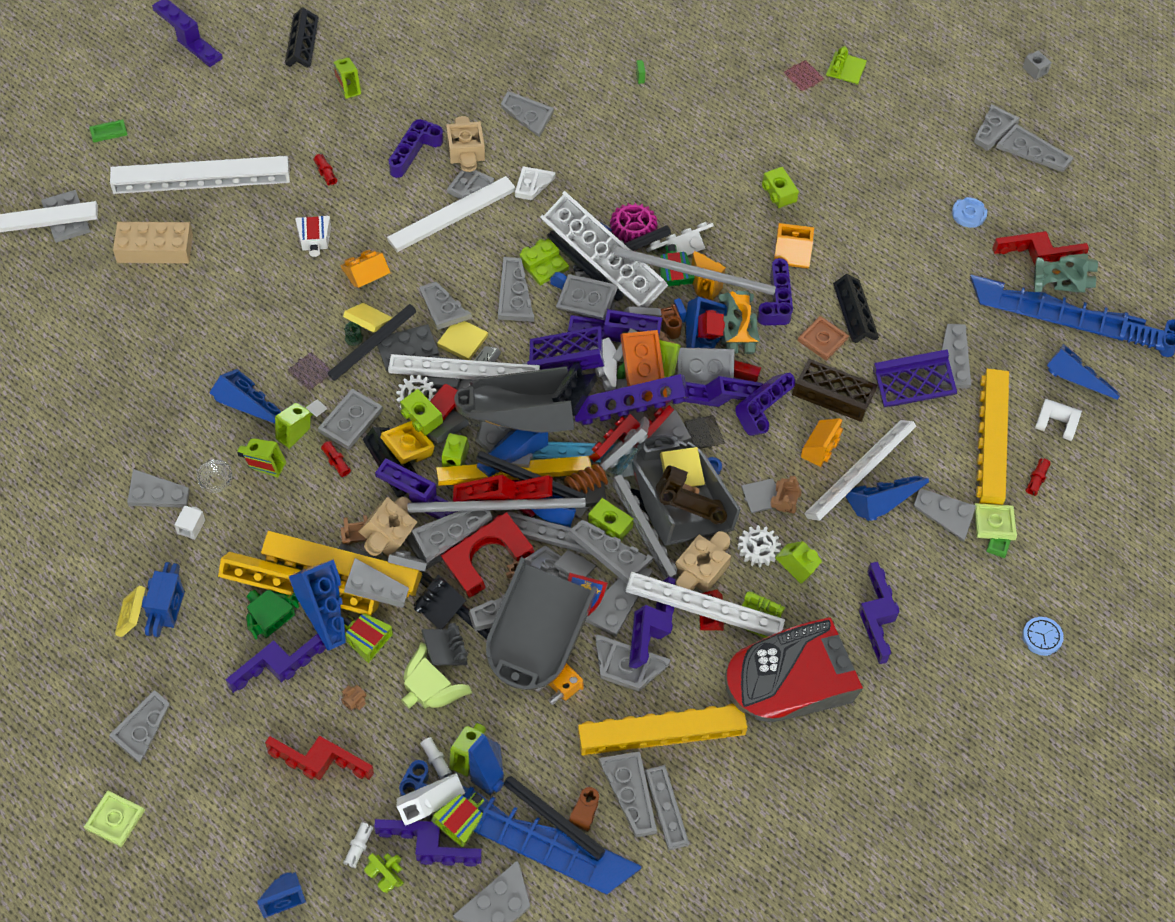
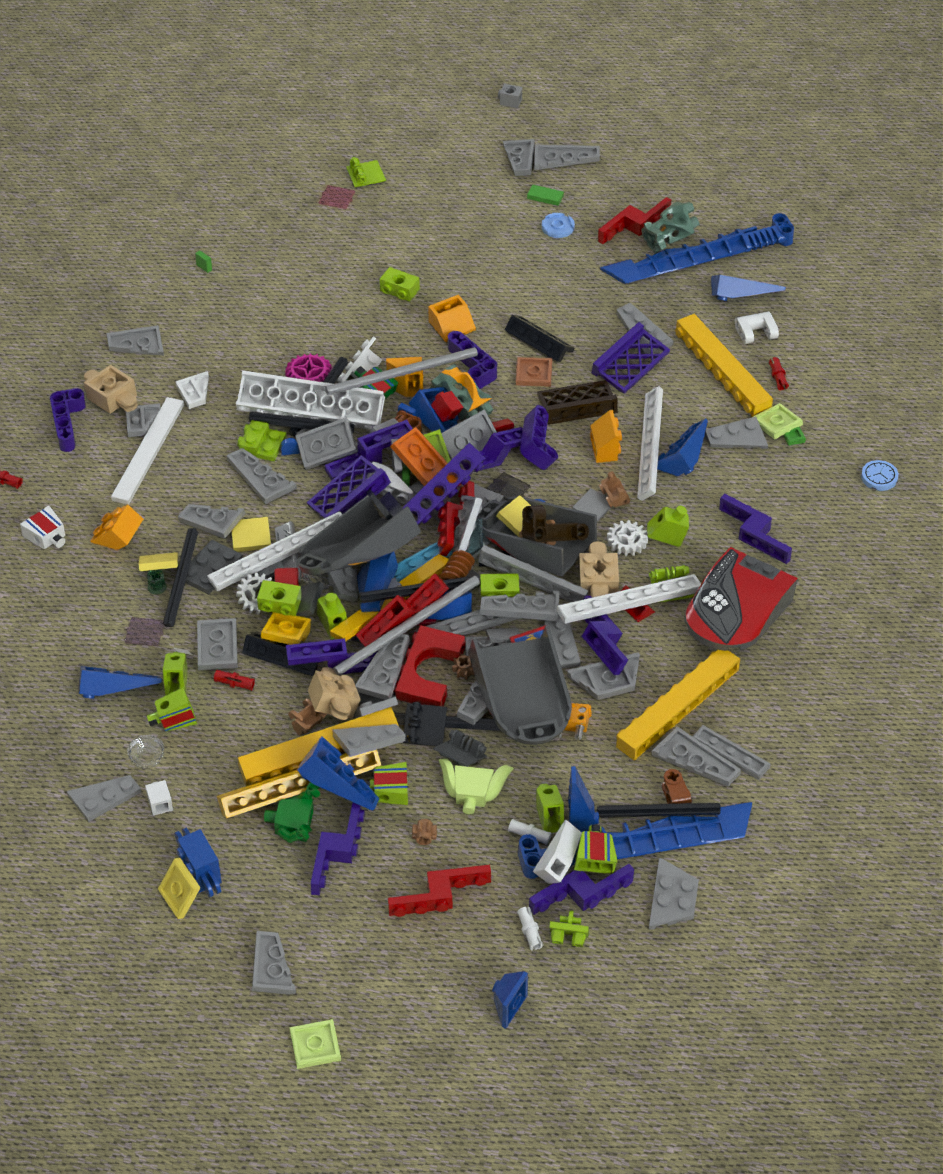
camera: 35 degrees left, 10 degrees down
(984, 177) = (545, 195): none -> bright green tile

